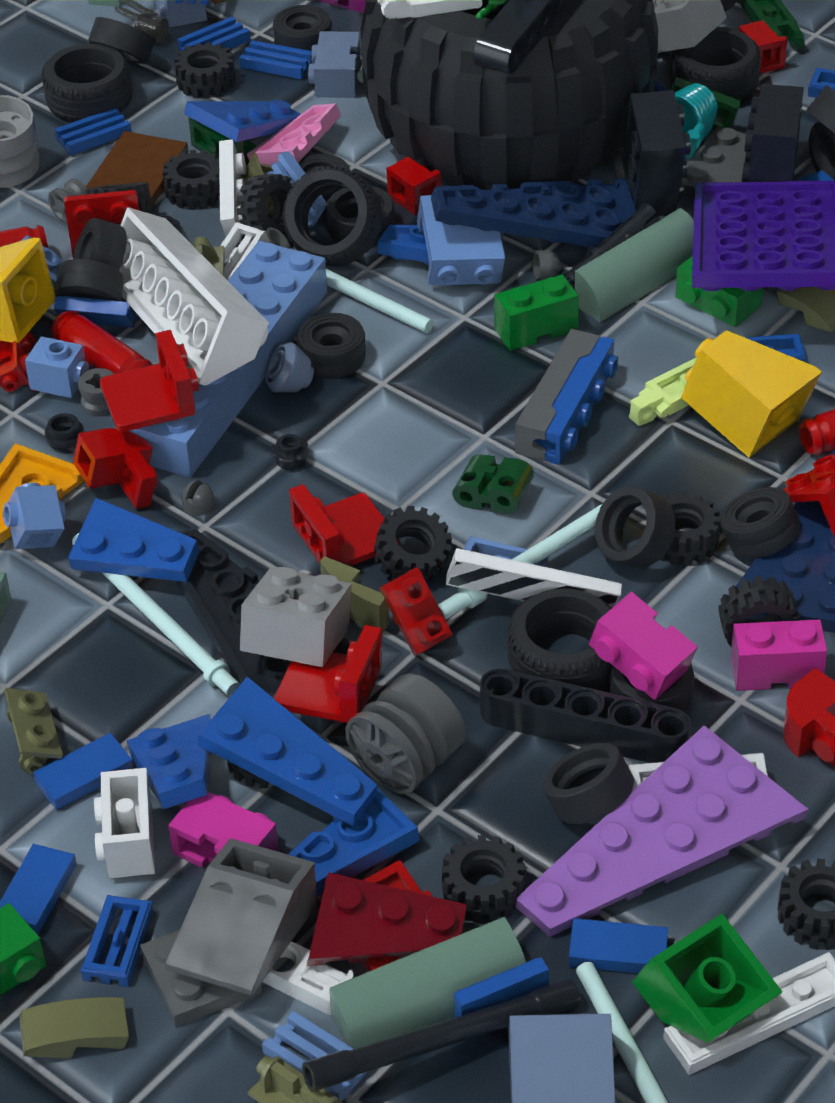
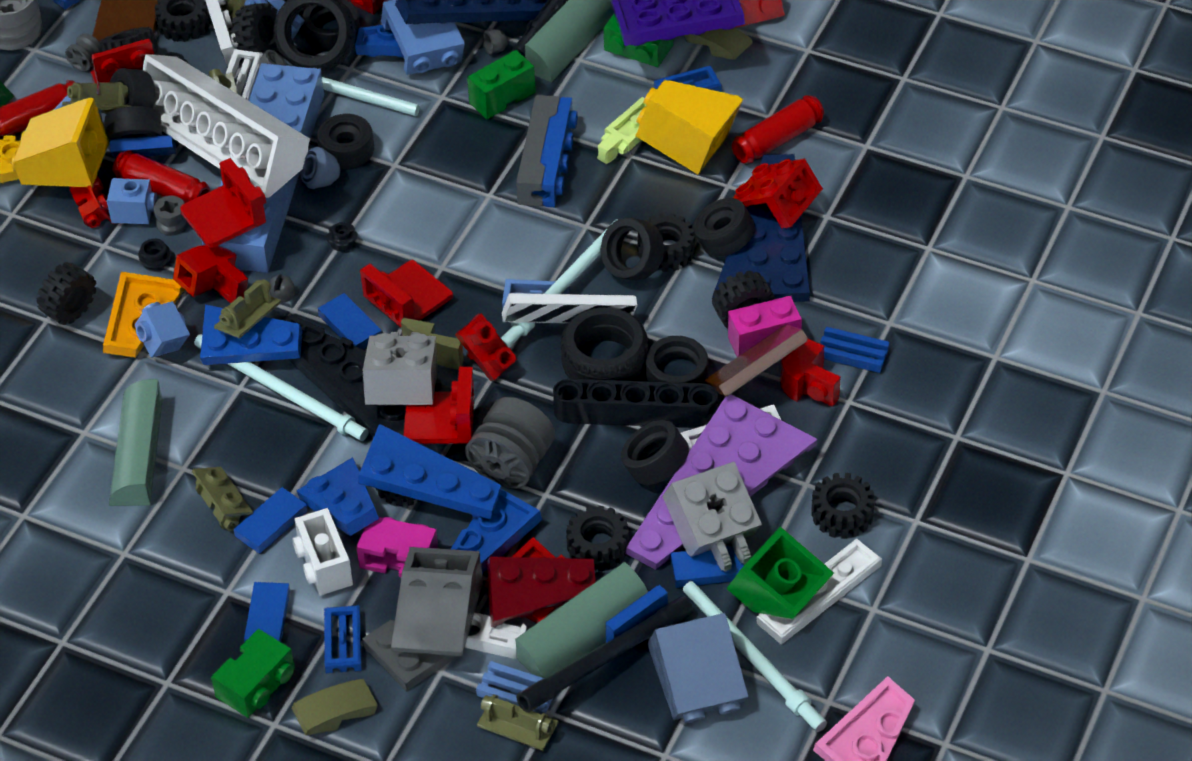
camera: 15 degrees left, 5 degrees up
(70, 243) = (110, 95): none -> olive hinge
(123, 517) = (248, 311): none -> olive hinge
(261, 546) = (348, 320): none -> blue tile
(419, 526) = (471, 280): black tyre -> none
(493, 483) = (511, 233): dark green piece -> none
(621, 895) = (727, 522): none -> light grey hinge
(641, 646) = (667, 342): dark pink brick -> none
(752, 691) = (756, 359): none -> tile

